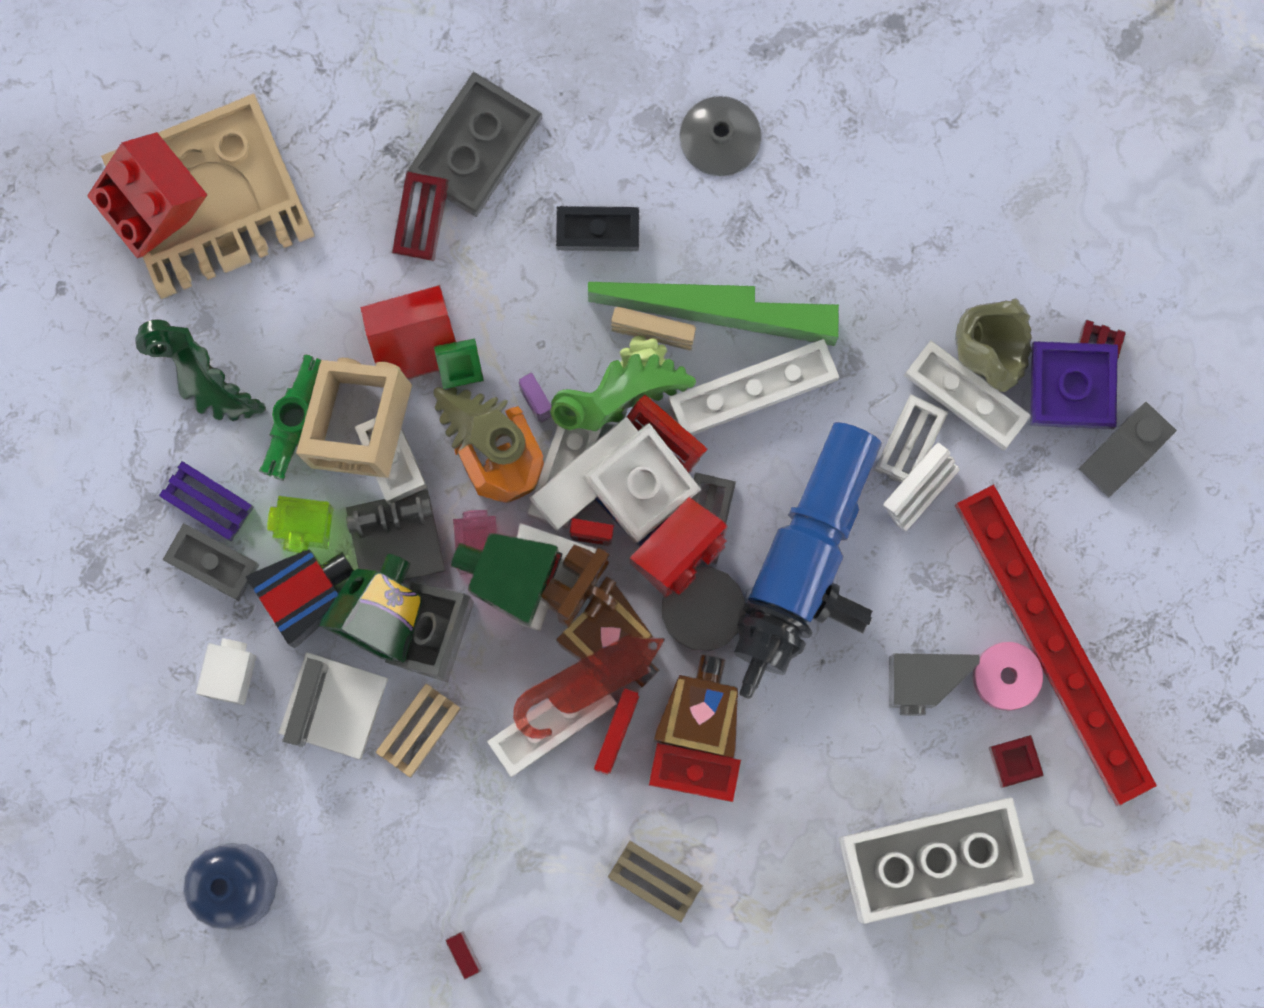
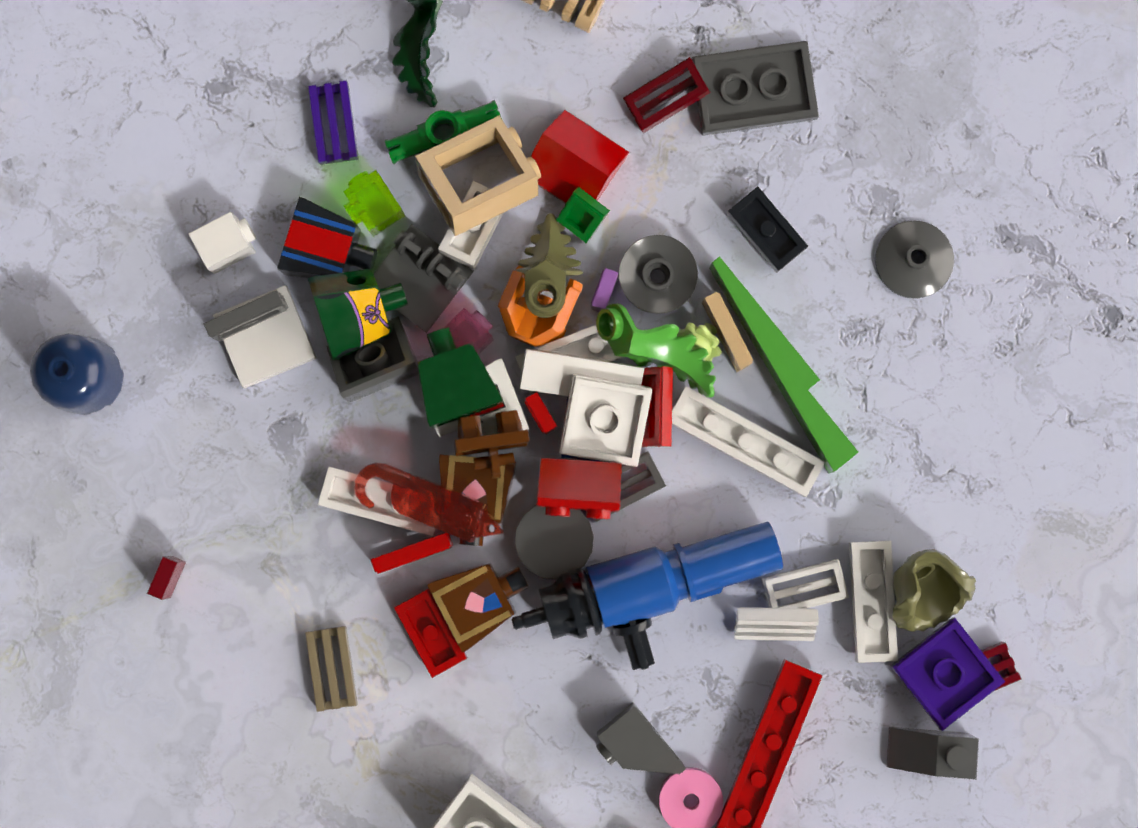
camera: 55 degrees right, 5 degrees up
(210, 561) = (292, 163): dark grey plate -> none
(439, 700) = (264, 413): tan tile -> none
(553, 324) = (662, 254): none -> dark grey dish

